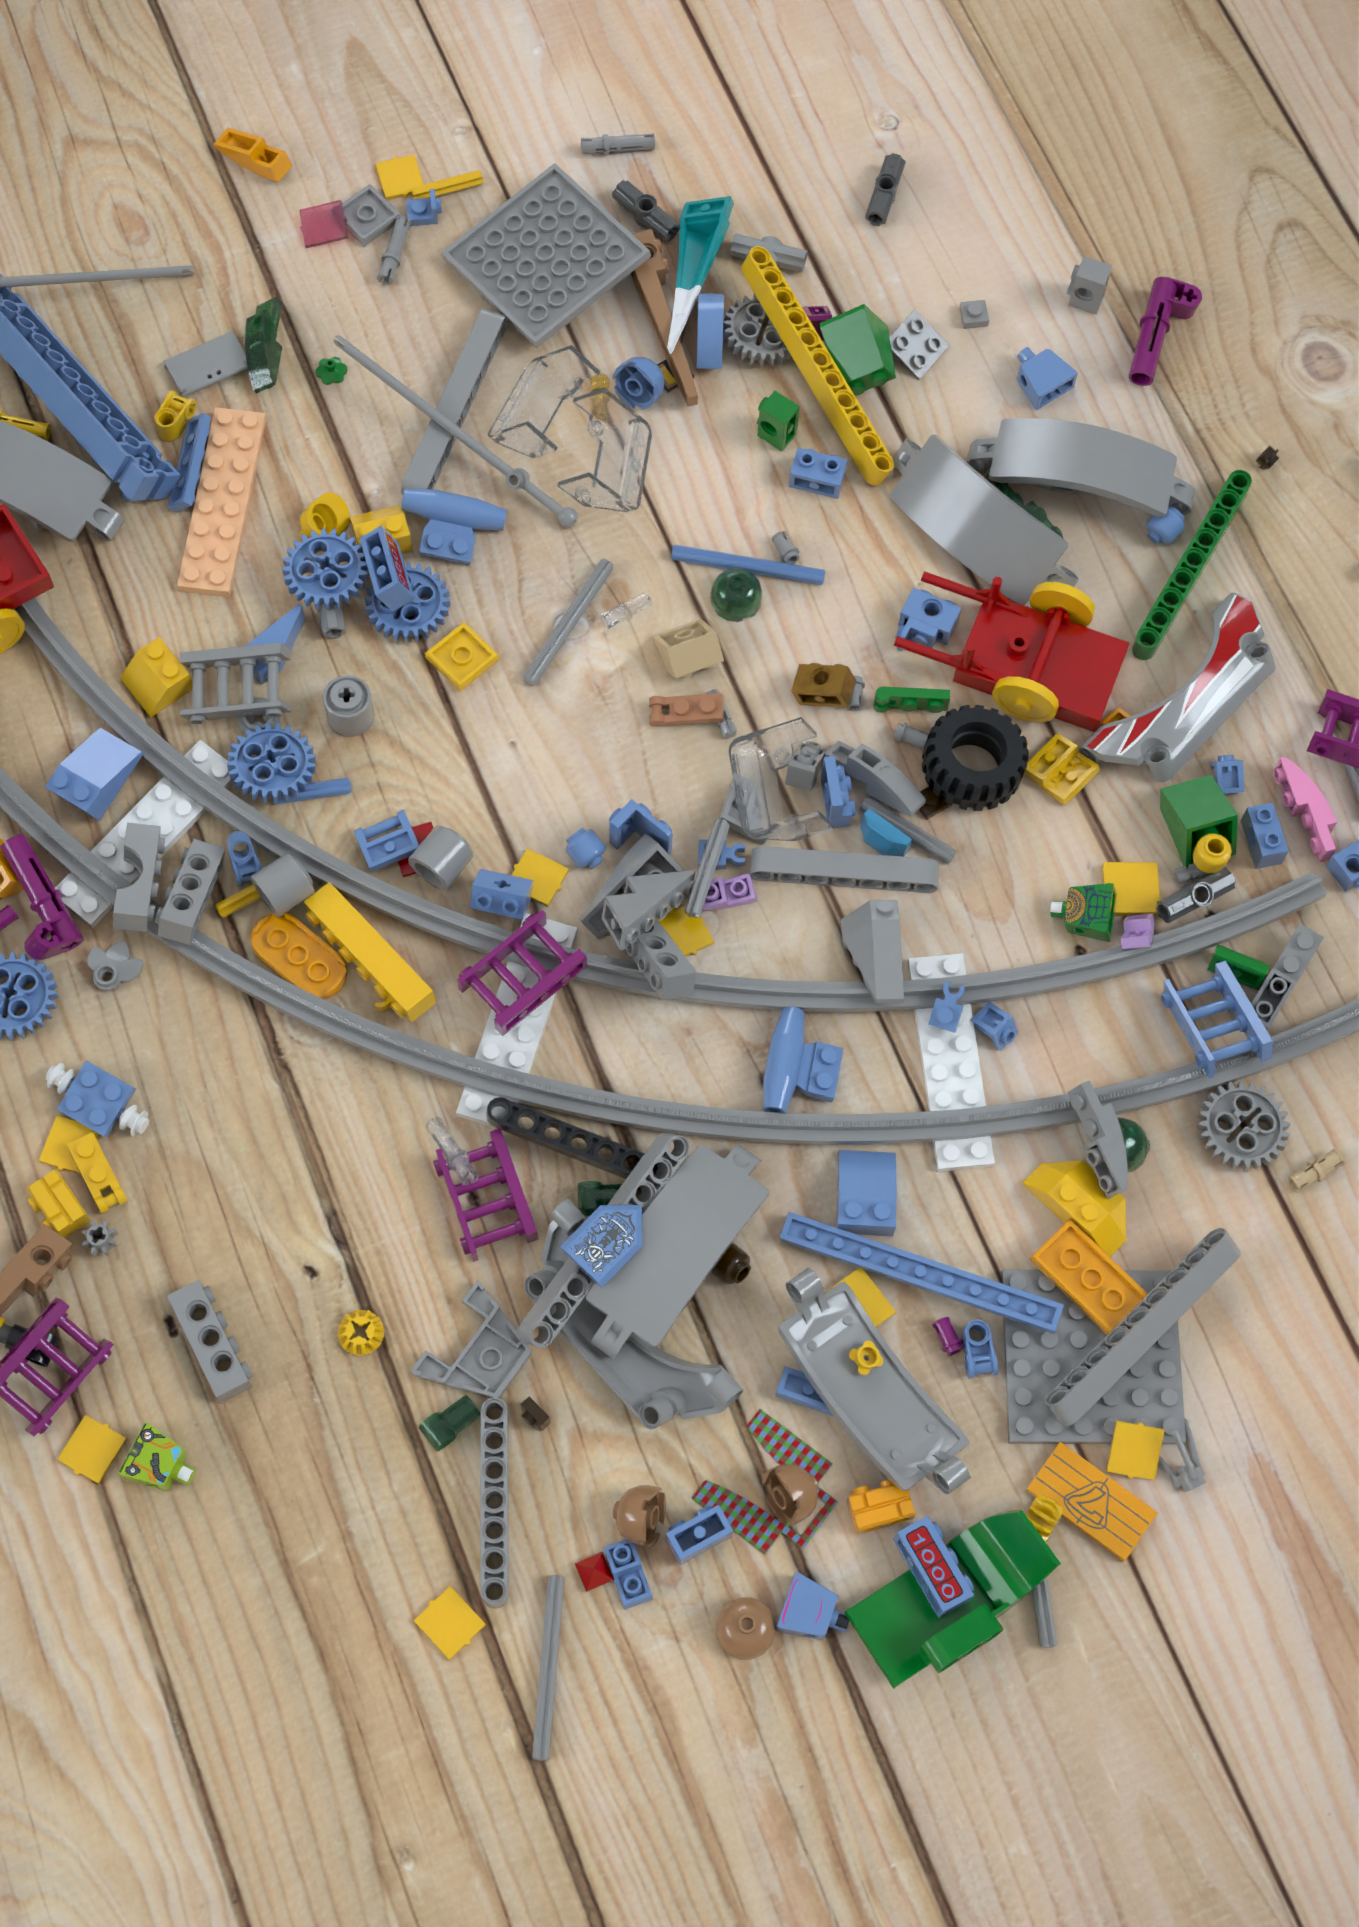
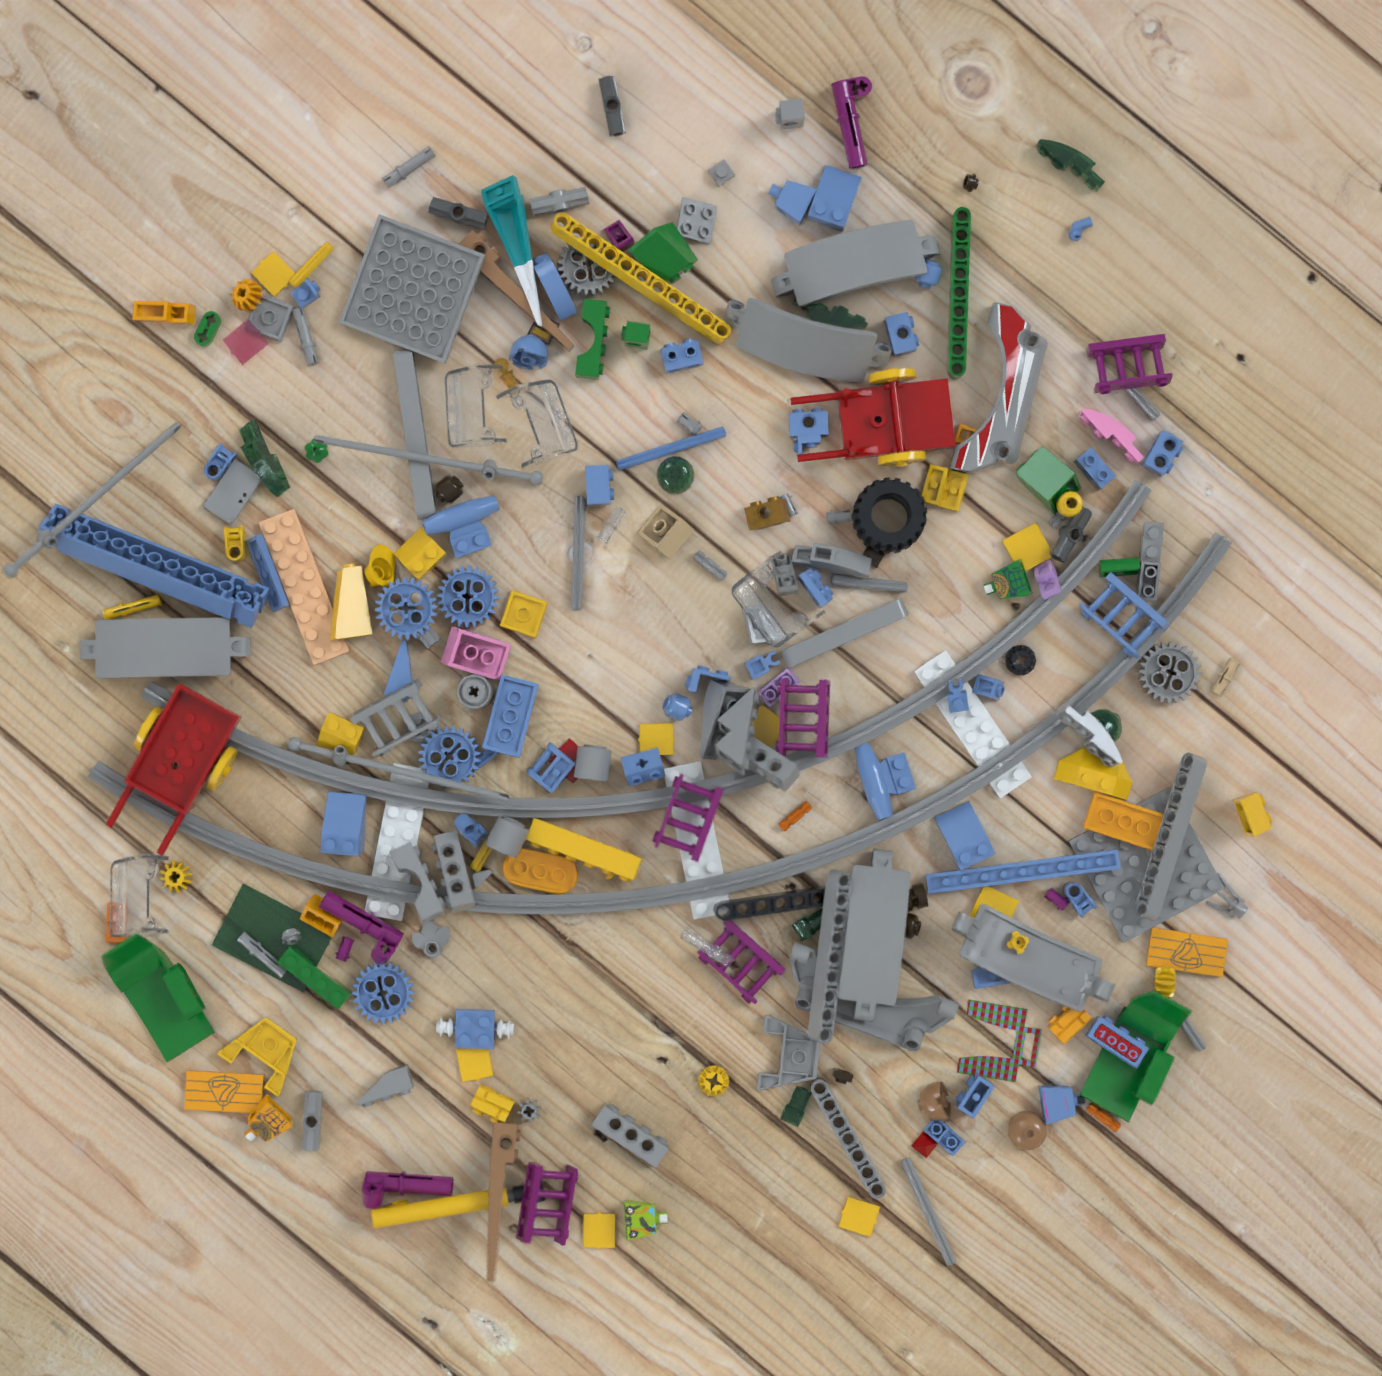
camera: 25 degrees left, 20 degrees up
(96, 1172) = (501, 1071): yellow plate -> none
(141, 696) = (341, 756): none -> light grey bar
(211, 325) = (219, 461): none -> medium blue piece
(221, 922) = (480, 877): none -> light grey slope
(259, 545) = (350, 605): none -> yellow slope
(290, 193) = (203, 326): none -> green beam
(355, 176) = (246, 295): none -> light orange gear
(373, 755) = (510, 716): none -> medium blue plate
(380, 664) = (475, 653): none -> bright pink slope
(387, 568) = (447, 588): medium blue brick -> none
(458, 477) = (449, 489): none -> dark brown head
(606, 1241) = (834, 962): medium blue tile -> none
(637, 556) = (598, 485): none -> medium blue brick
(659, 1055) = (794, 816): none -> orange axle
(687, 709) = (689, 576): nougat plate -> none
(704, 427) = (589, 363): none -> green arch
(707, 868) = (761, 681): light grey axle -> none
(751, 952) = (820, 728): none -> magenta fence
(762, 1243) = (921, 898): none -> dark brown wheel
(791, 1493) = (1015, 1043): medium nougat cylinder -> none
(862, 1667) = (1103, 1117): none -> orange axle
(875, 945) = (889, 675): light grey wedge -> none
(883, 835) = (857, 597): dark azure slope -> none
(911, 699) = (826, 492): green plate -> none
(1045, 1023) = (1011, 657): none -> black gear
(1092, 396) = (834, 198): none -> medium blue slope
(1098, 560) = (901, 322): none -> medium blue brick
(1135, 1450) = (1198, 909): yellow piece -> none
(1228, 774) = (1051, 436): medium blue bracket -> none
(1271, 1359) = (1252, 814): none -> yellow slope

